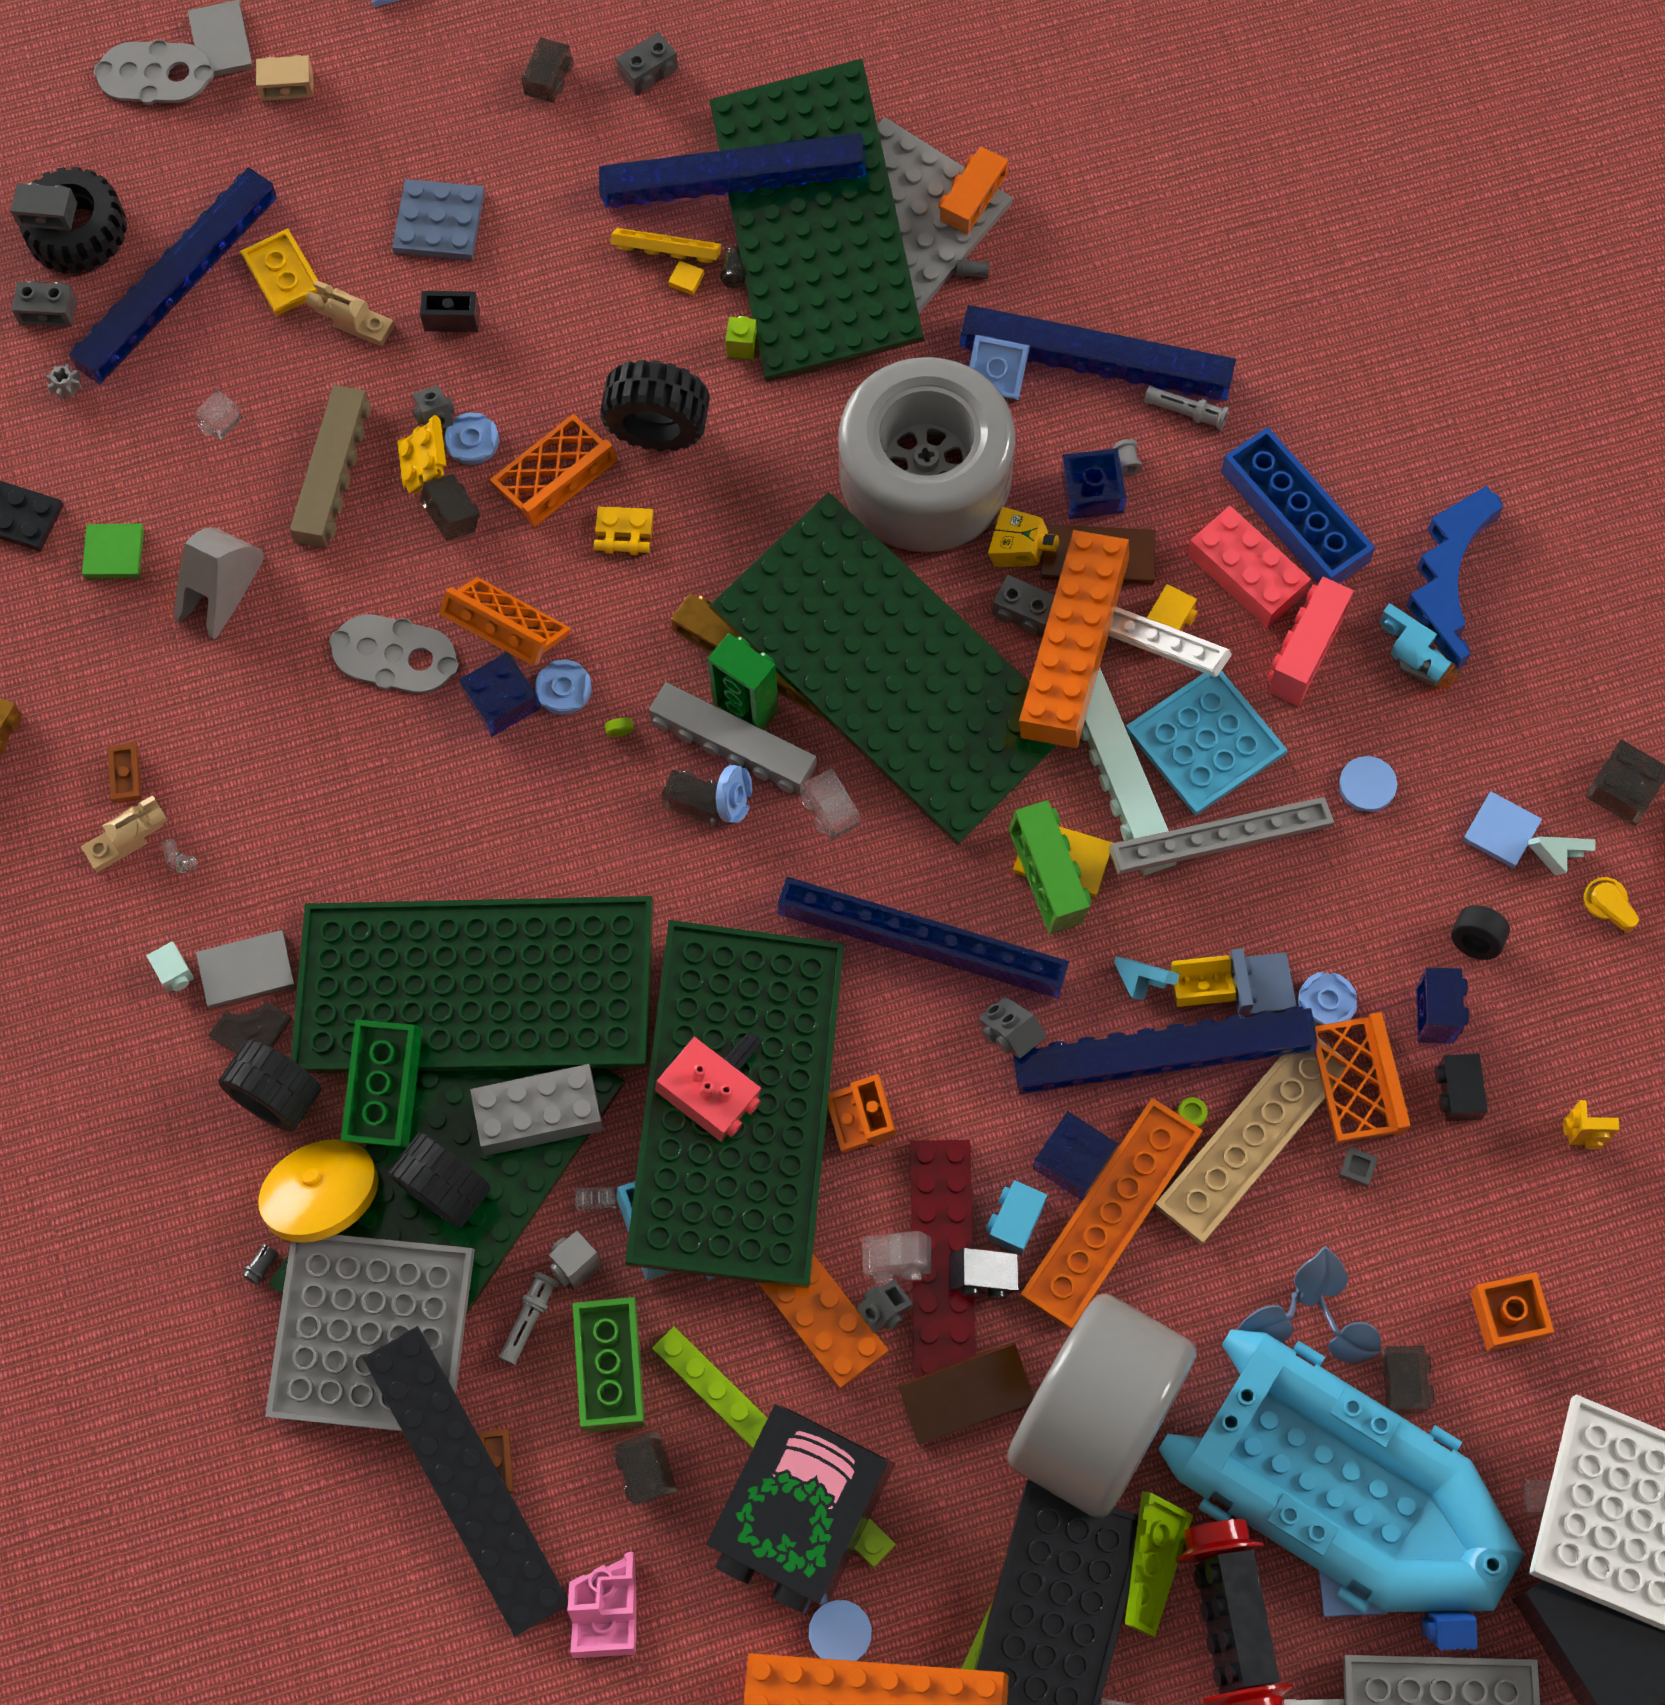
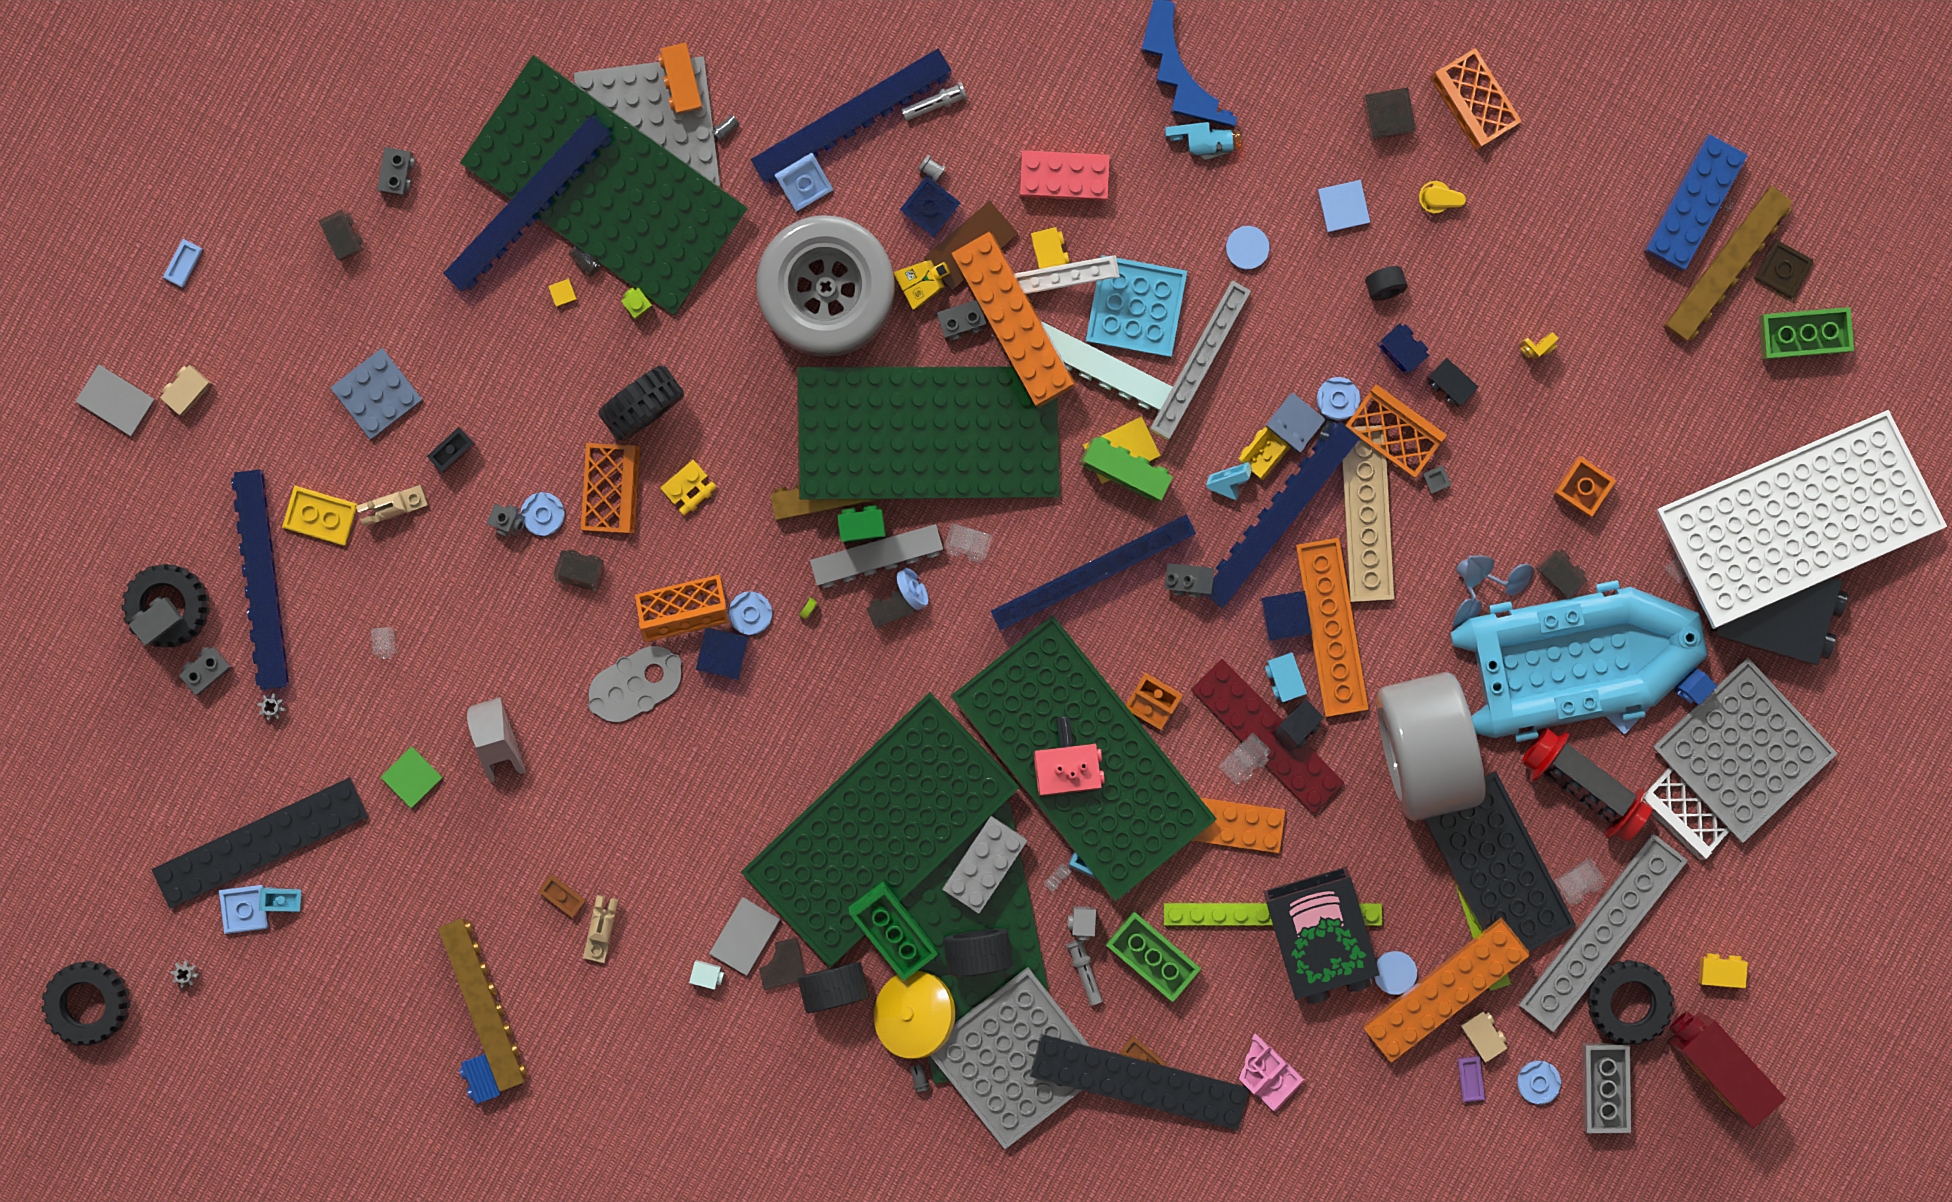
camera: 45 degrees left, 20 degrees up
(142, 72) = (89, 467): light grey piece -> none
(175, 860) = (644, 914): clear arm -> none
(330, 466) = (482, 610): dark tan brick -> none
(422, 455) = (531, 555): yellow plate -> none
(645, 1468) = (1222, 989): clear smoke brick -> none
(657, 243) = (530, 283): yellow plate -> none
(884, 1306) = (1263, 791): dark grey brick -> none
(966, 1393) = (1346, 794): reddish brown tile -> none
(1154, 1561) = (1517, 787): lime wing -> none
(1193, 1110) = (1322, 530): lime tile -> none
(1297, 508) = (1060, 113): blue brick -> none
(1309, 640) = (1142, 193): coral brick -> none
(1556, 850) = (1384, 193): light aqua slope -> none

